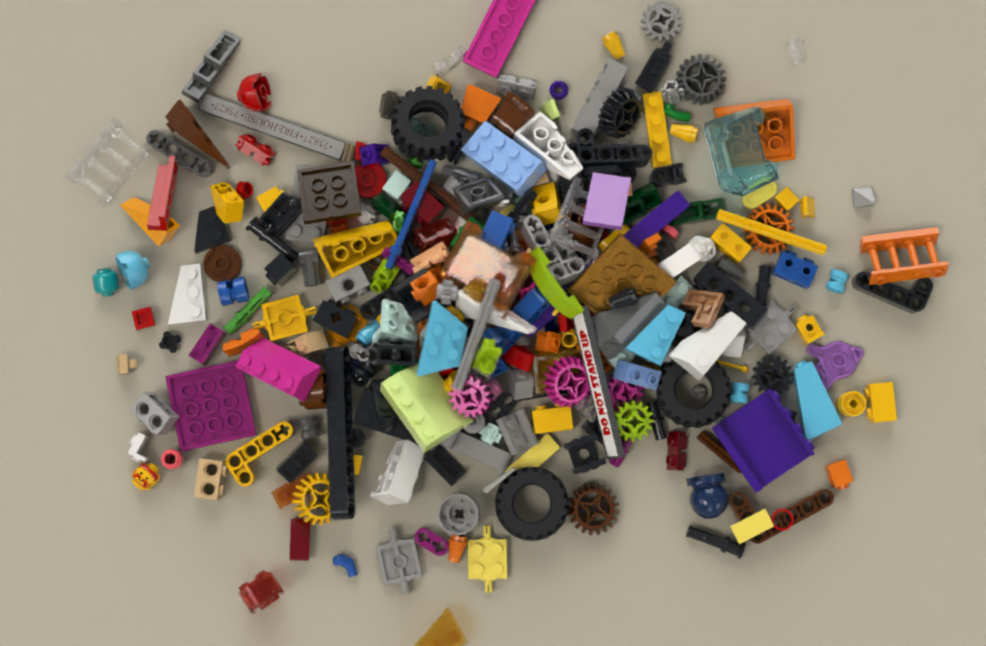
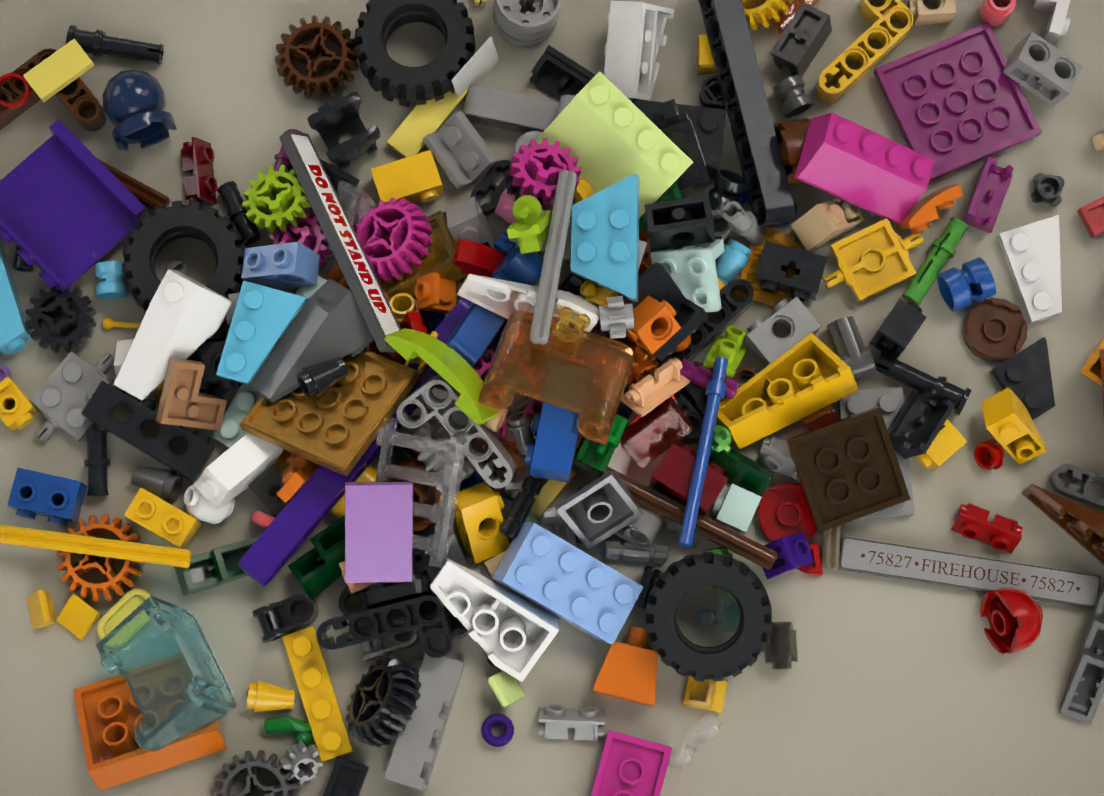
camera: 170 degrees right, 5 degrees down
(490, 434) = (501, 139): light aqua gear -> none
(512, 114) = (566, 666): reddish brown piece -> none

